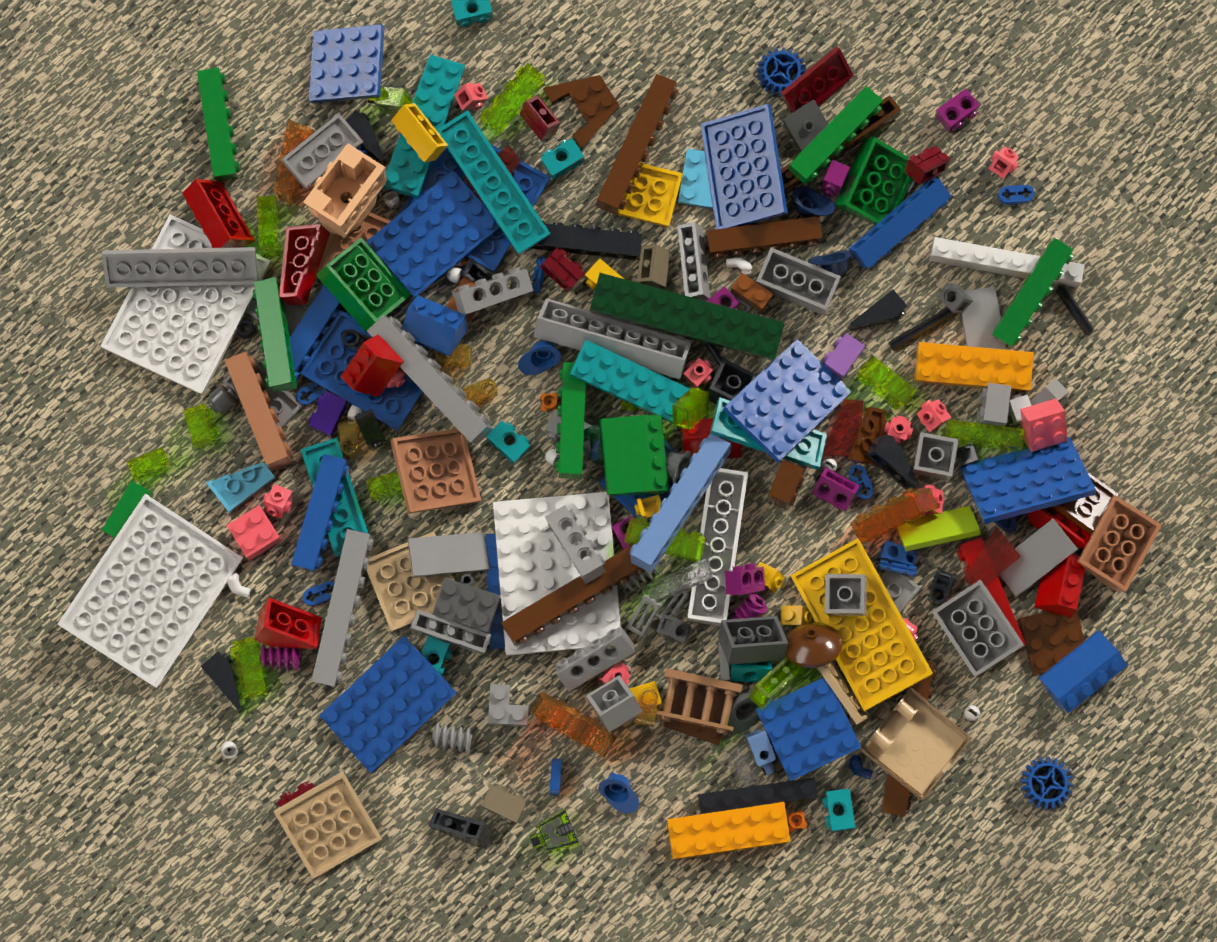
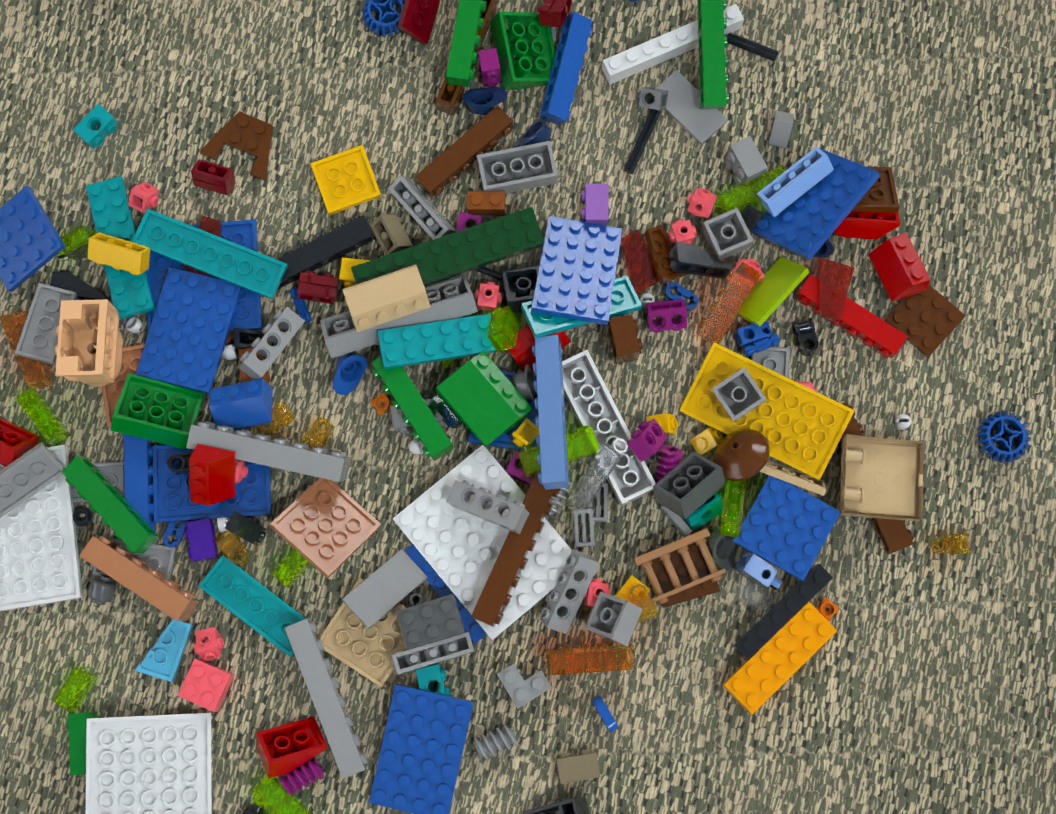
camera: 30 degrees left, 0 degrees up
(200, 426) = (98, 625): clear neon green brick -> none
(236, 588) = (222, 742): white arm -> none
(301, 261) = (91, 427): red wedge -> none
(316, 590) = (293, 696): blue beam -> none
(319, 513) = (252, 630): blue brick -> none
(510, 101) = (179, 180): clear neon green brick -> none
(514, 452) = (359, 459): teal brick -> none
(555, 833) = (639, 761): torso -> none
(558, 168) = (256, 208): teal brick -> none
(611, 318) = (386, 298): none -> tan slope
(618, 793) = (667, 690): blue piece -> none
(636, 145) = (309, 146): reddish brown brick -> none
(673, 629) = (615, 521): dark grey brick -> none
(695, 181) = (378, 144): medium azure wing -> none
(719, 567) = (620, 444): none -> white hinge
(741, 263) = (459, 186): white arm -> none
(744, 167) = (410, 106): plate -> none
(805, 124) = (435, 41): dark grey plate -> none
(843, 799) = (867, 579): teal brick -> none
(857, 768) = (845, 531): clear blue arm -> none
(882, 312) = (602, 149): black slope -> none
(886, 383) = (645, 203): clear neon green brick -> none
(941, 842) = (954, 544): none -> clear yellow piece
(972, 366) = (704, 143): light orange brick -> none
(977, 628) = (862, 349): light grey slope -> none
(1016, 403) = (769, 151): white brick -> none
(1022, 450) = (795, 181): none -> light blue brick
(1038, 556) = (868, 255): light grey tile -> none
(1044, 425) = (793, 145): coral brick -> none
(1082, 672) = (968, 327): blue slope -> none
(1119, 544) = (924, 205): nougat slope -> none

